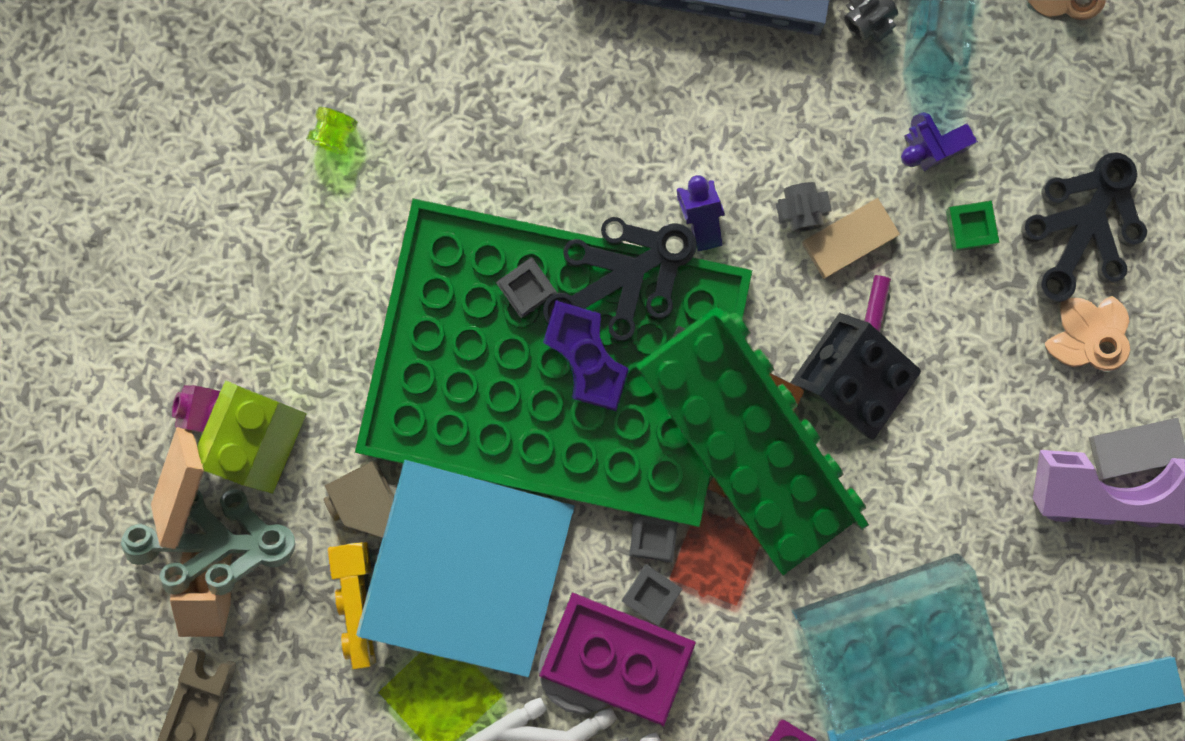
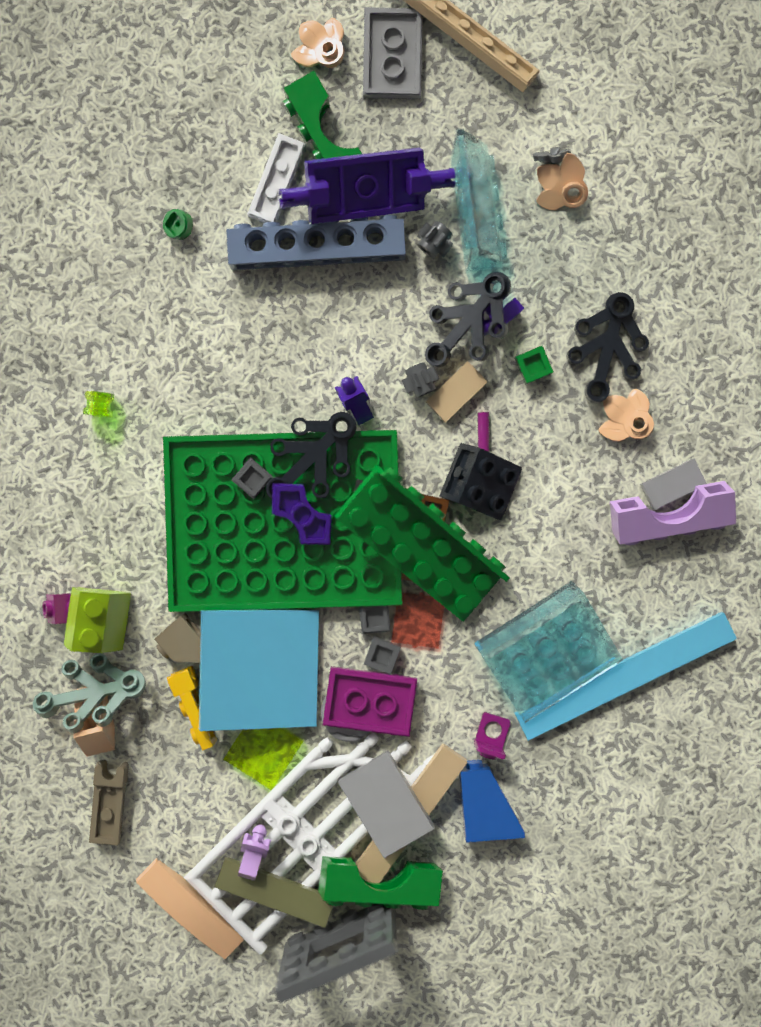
camera: 20 degrees left, 5 degrees up
(176, 488) = (59, 664): light nougat tile -> none
(898, 134) = (471, 317): none -> black plant

